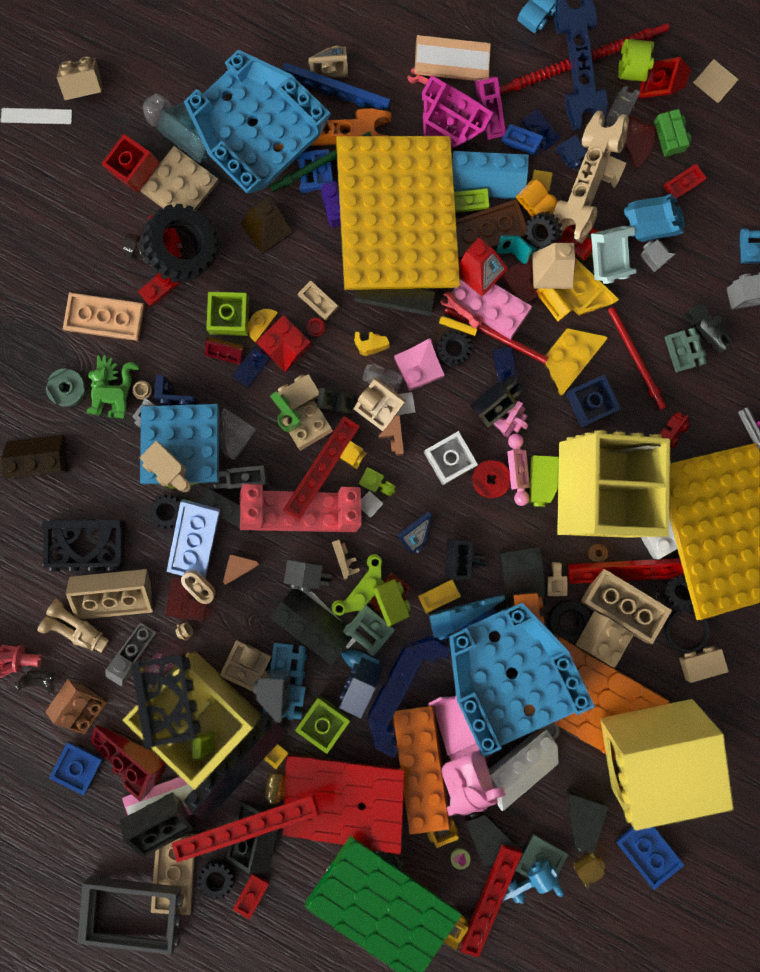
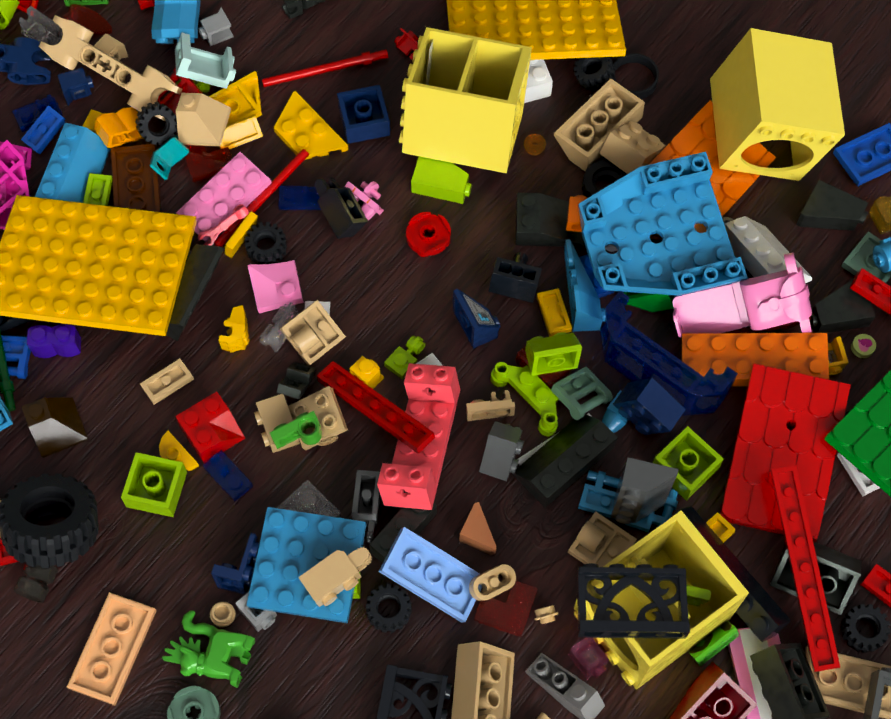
camera: 80 degrees left, 20 degrees down
(157, 289) = (95, 572): red hinge -> none
(224, 350) = (198, 501): dark red plate -> none
(275, 788) = (758, 536): clear yellow brick -> none
(315, 327) = (198, 390): red plate -> none
(394, 430) = (351, 322): nougat slope -> none
(450, 458) = (395, 267): white brick -> none
(481, 267) = (180, 192): red slope -> none
(518, 469) = (413, 203): bright pink plate -> none
(556, 583) = (561, 187): tan plate -> none
(626, 570) = (560, 111): red plate -> none
(680, 350) = (329, 25): sand green plate -> none
(703, 664) = (674, 66): tan piece -> none

